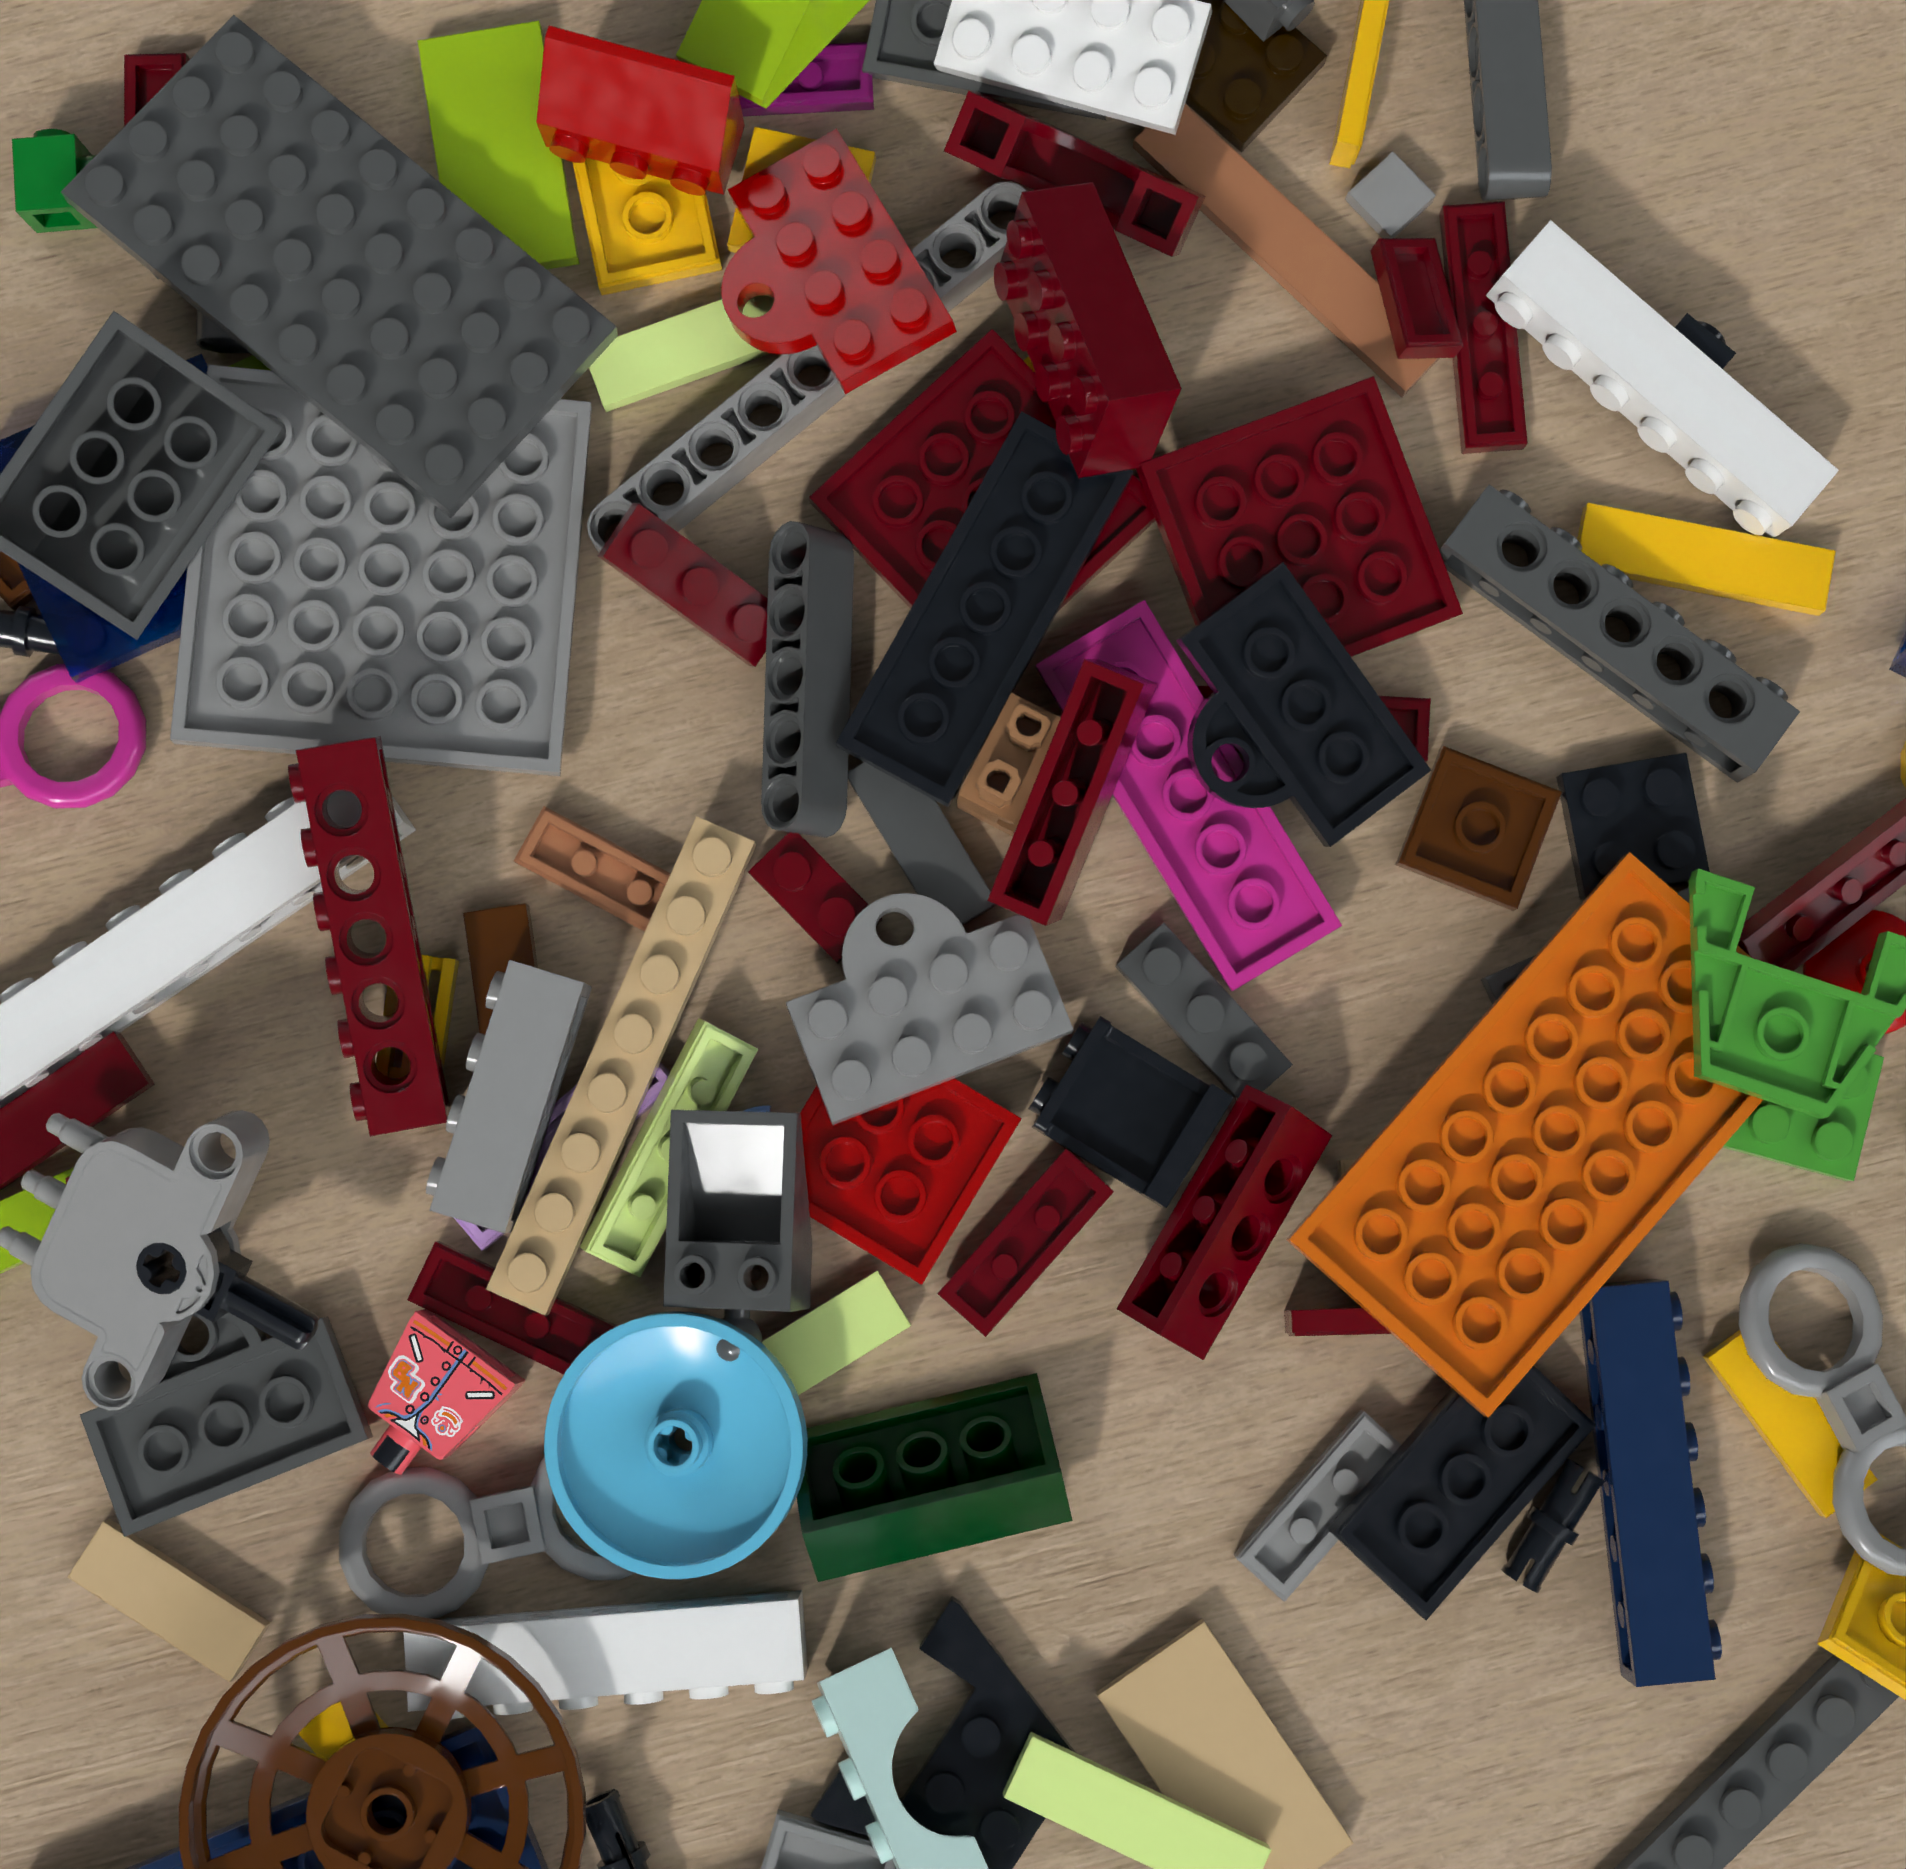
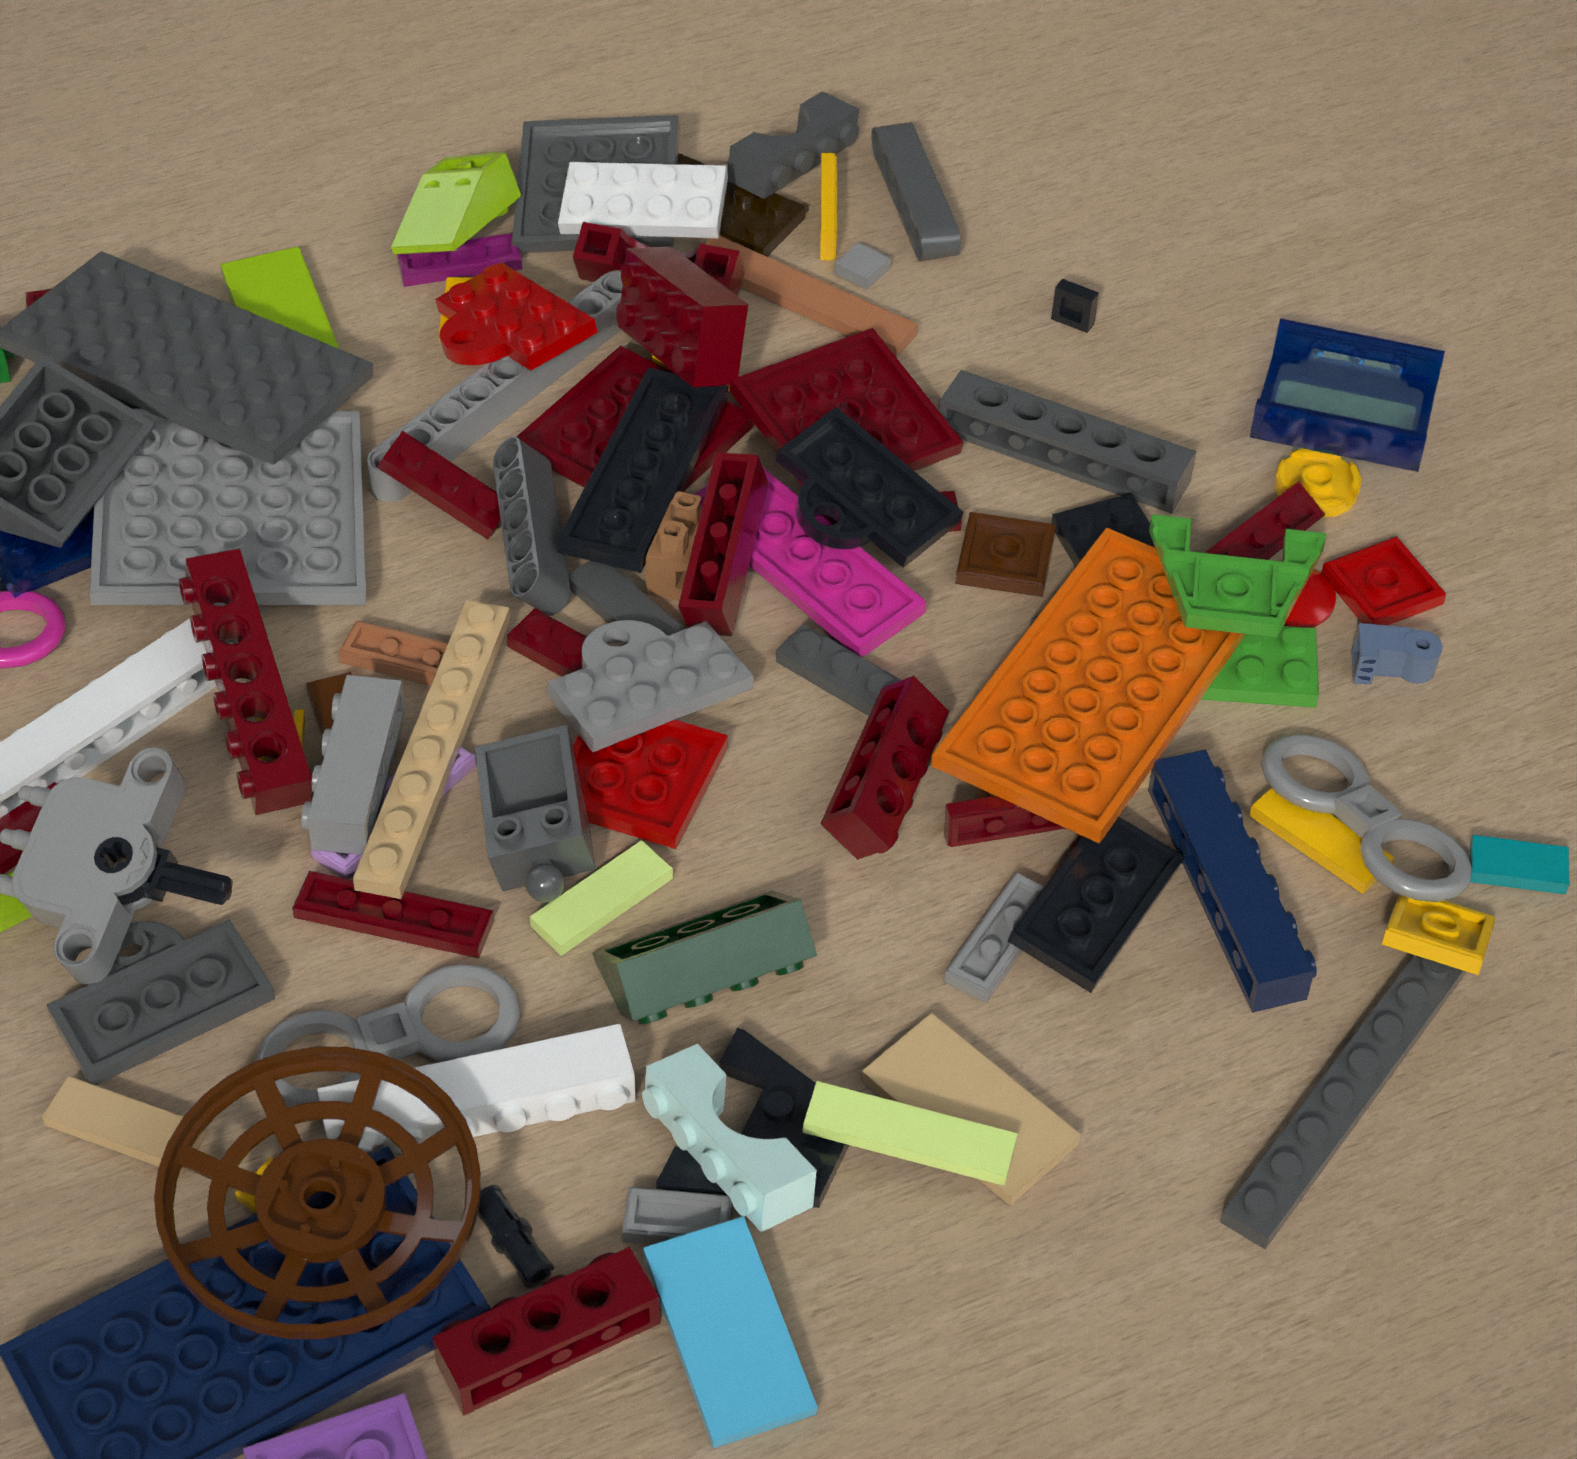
camera: 15 degrees left, 35 degrees down
(436, 1392) = (325, 953): coral torso -> none
(628, 1480) = (509, 952): medium azure dish -> none
(636, 1203) = (461, 820): yellowish green tile -> none
(638, 112) = (373, 257): red slope -> none
(643, 229) = (378, 317): yellow tile -> none
(673, 353) = (409, 389): yellowish green tile -> none
(1025, 1242) = (745, 809): dark red plate -> none
(1129, 1111) = (800, 728): black panel -> none
(1416, 298) = (891, 301): dark red tile -> none
(1489, 362) = (938, 317): dark red tile -> none
(1553, 1525) = (1171, 918): black pin -> none
(1660, 383) = (1058, 317): white brick -> none
(1708, 559) = (1128, 404): yellow tile -> none

